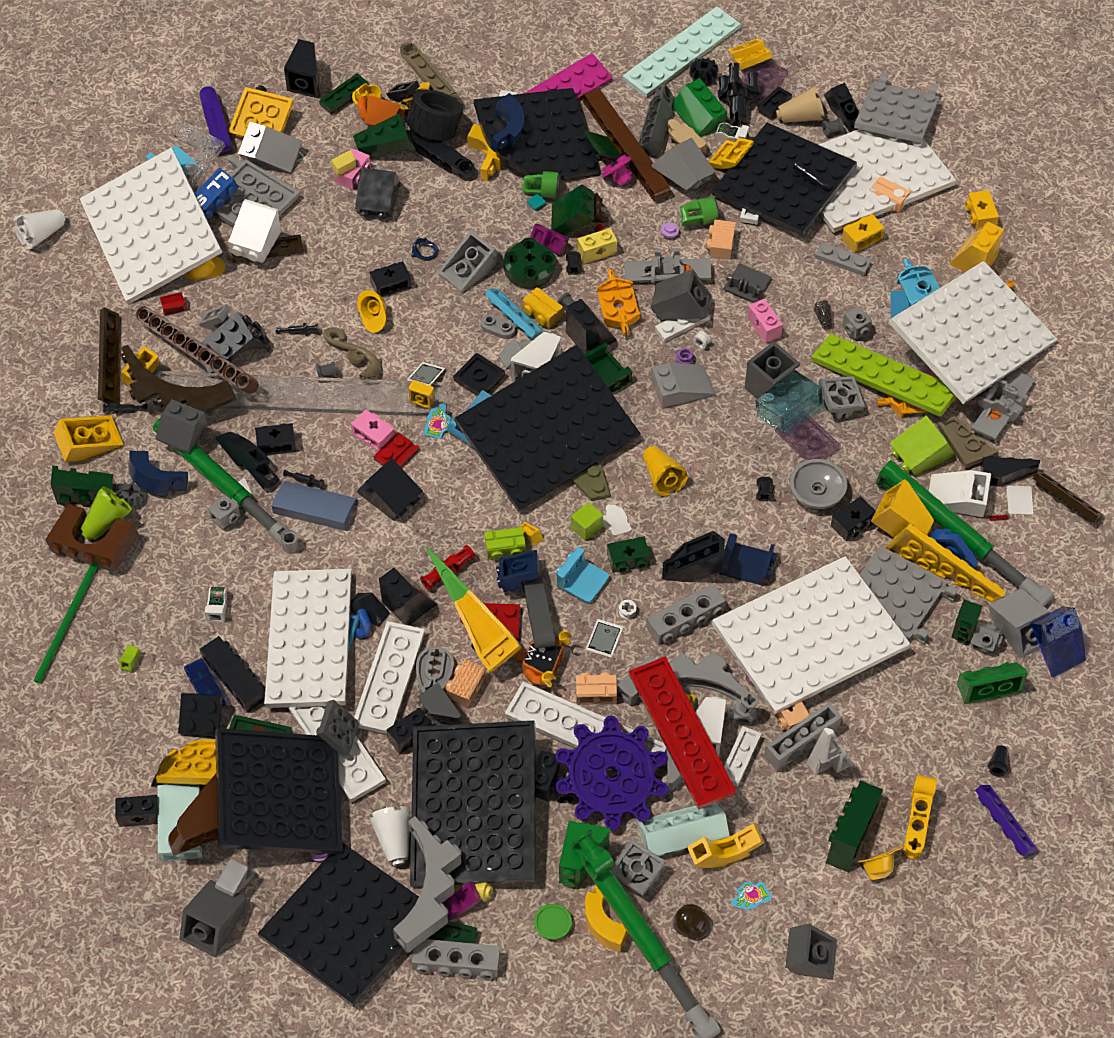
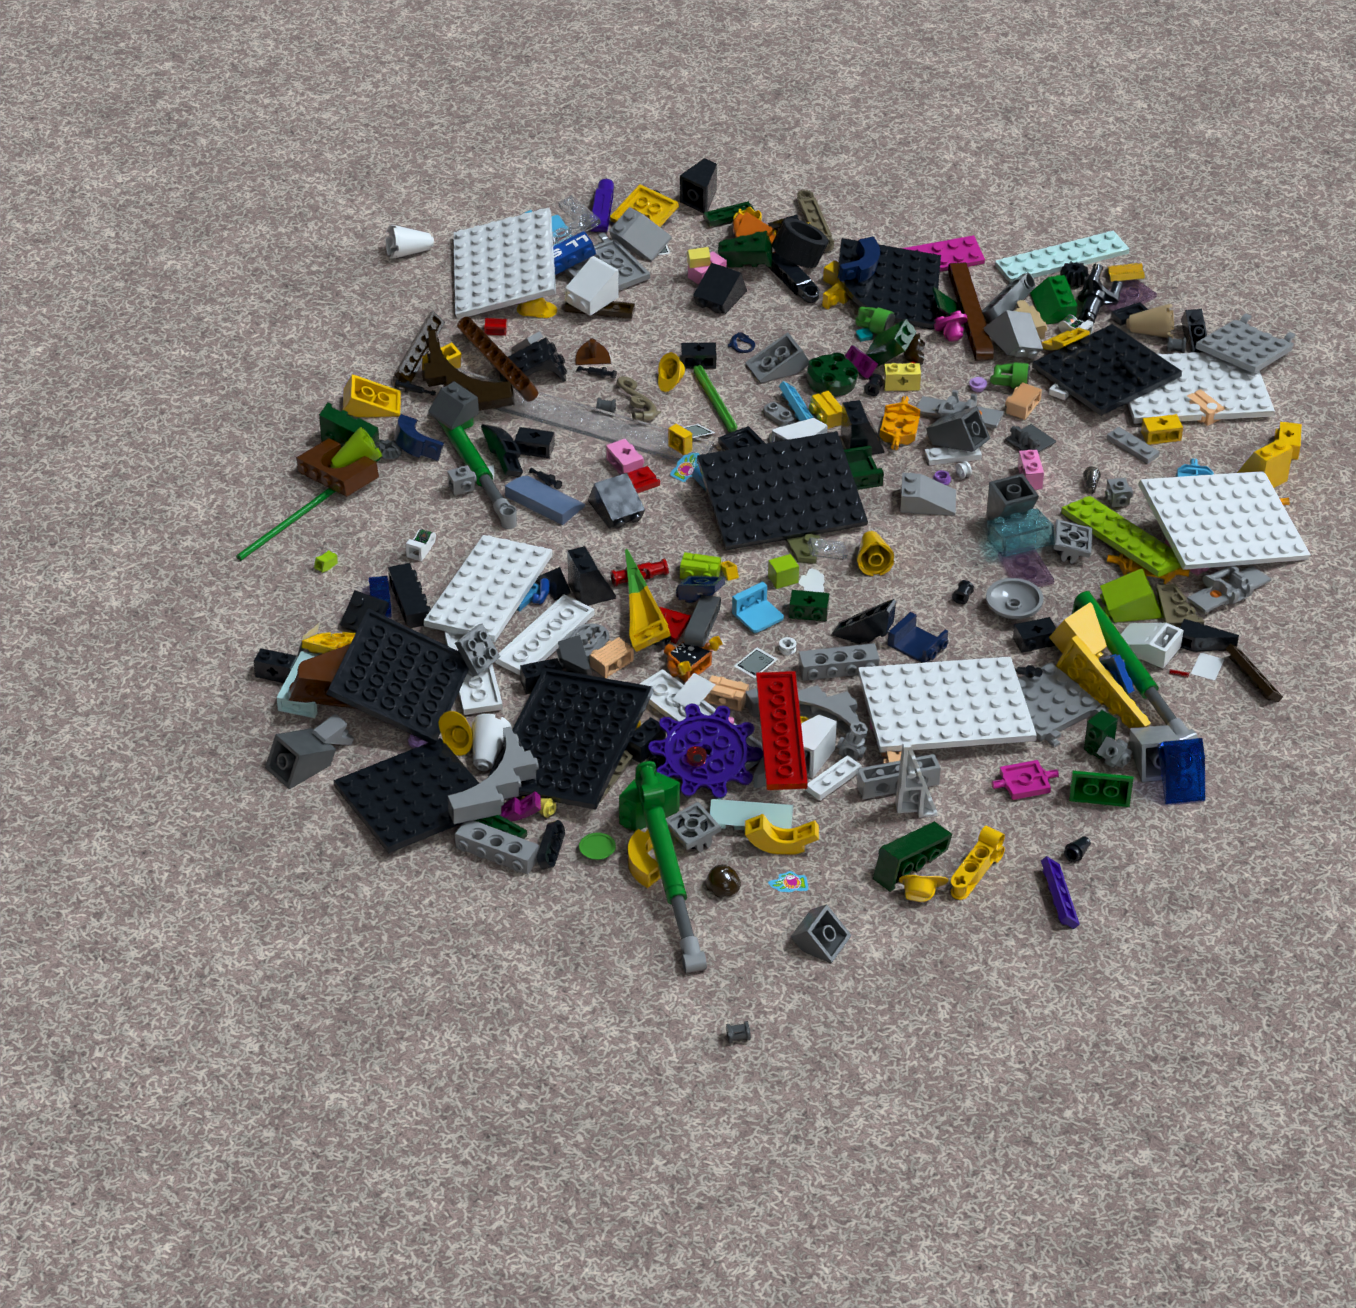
camera: 20 degrees right, 15 degrees down
(283, 307) = (592, 353): none -> reddish brown shield
(359, 836) = (456, 732): none -> yellow piece
(428, 327) = (715, 399): none -> bright green axle
(508, 937) = (551, 844): none -> black beam
(567, 701) = (693, 690): none -> white sticker
(607, 784) = (696, 756): none -> clear red tile
(616, 479) = (827, 548): none -> clear plate
(869, 567) = (1029, 671): none -> black piece
(917, 695) = (1025, 779): none -> dark pink plate

